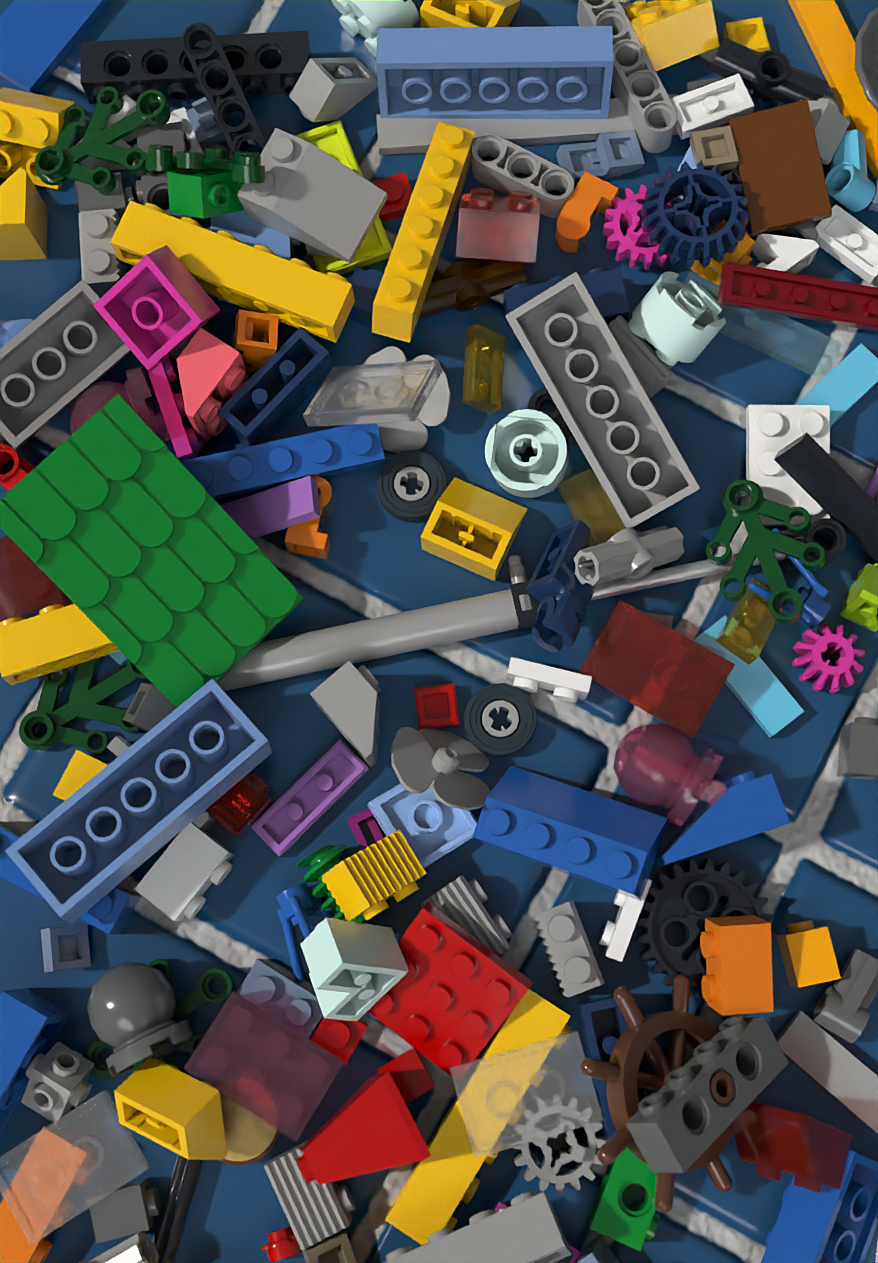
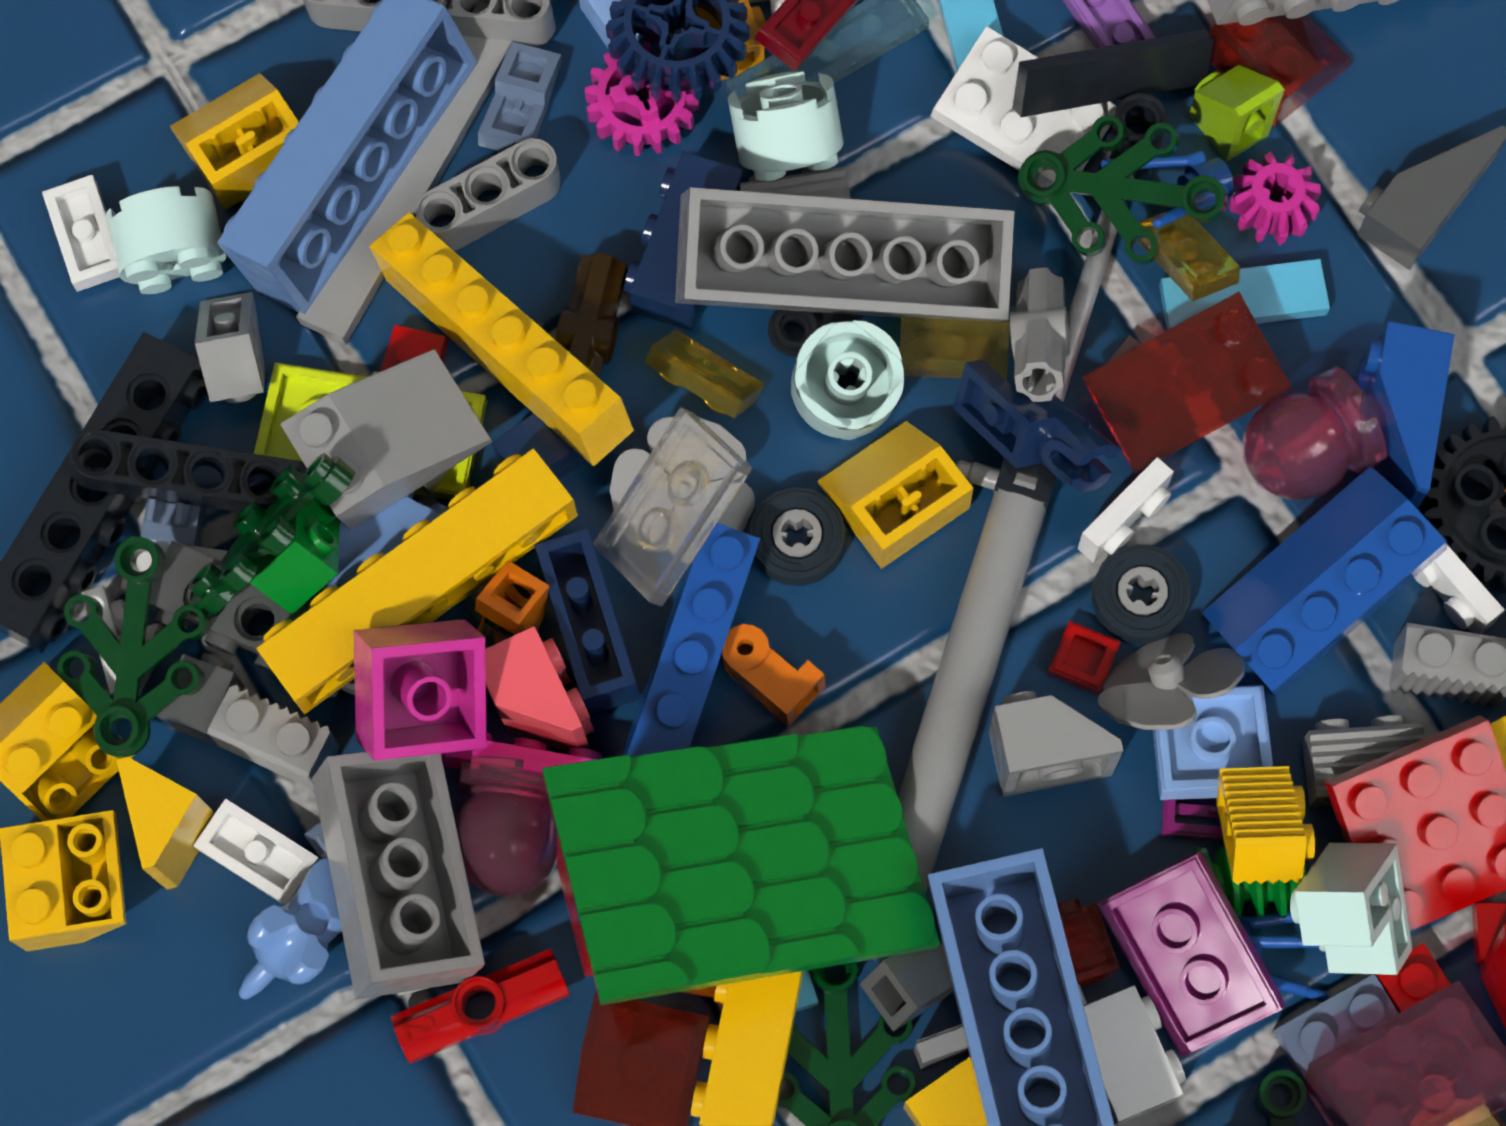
camera: 60 degrees left, 5 degrees down
(31, 284) = (255, 852): none -> white plate
(269, 878) = (1191, 953): none -> tile
(276, 507) = (742, 693): medium lavender tile -> none
(310, 798) = (1103, 839): medium lavender tile -> none
(498, 226) = (549, 251): clear red brick -> none
(580, 211) = (582, 167): orange leg -> none

